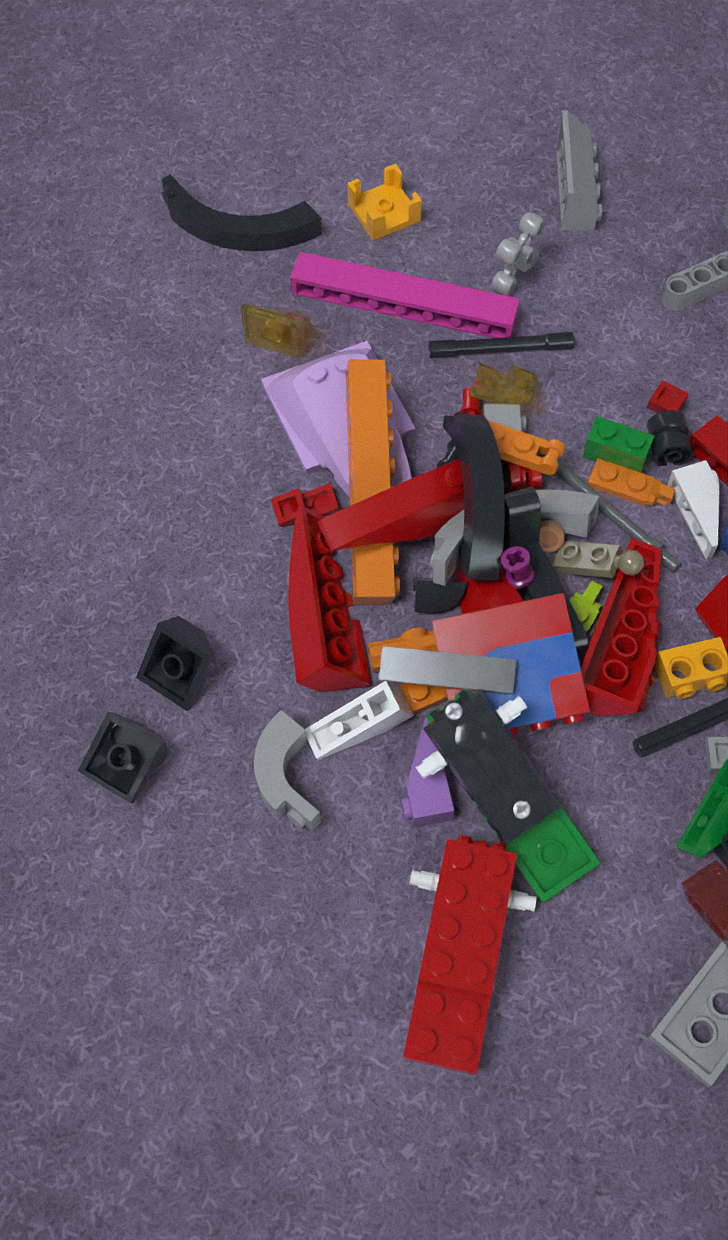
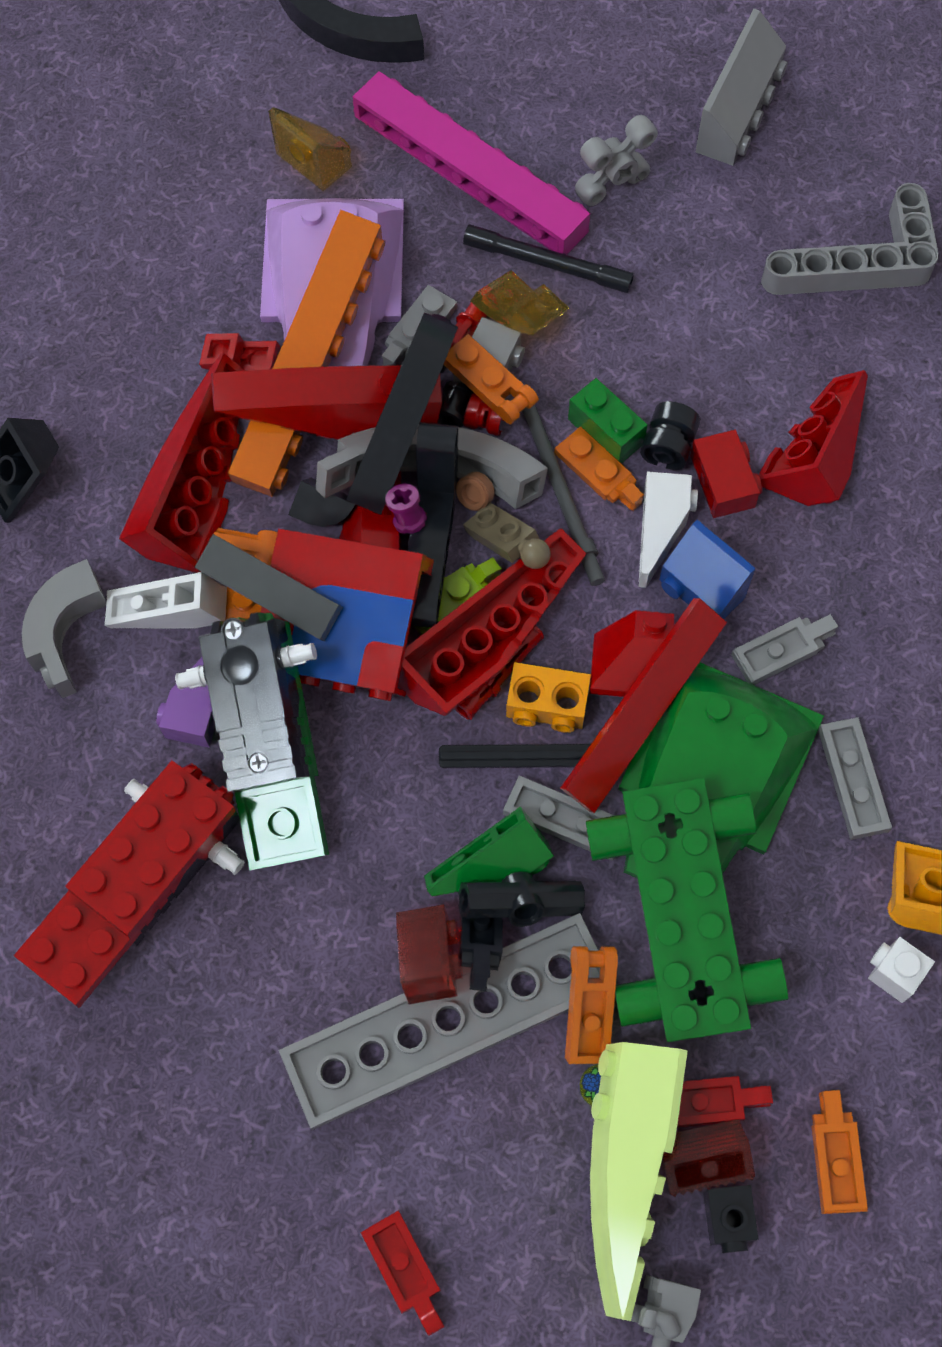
camera: 25 degrees right, 5 degrees up
(384, 207) = (507, 53): light orange panel -> none
(430, 434) = (400, 338): none -> light grey hinge
(667, 398) = (697, 391): red plate -> none

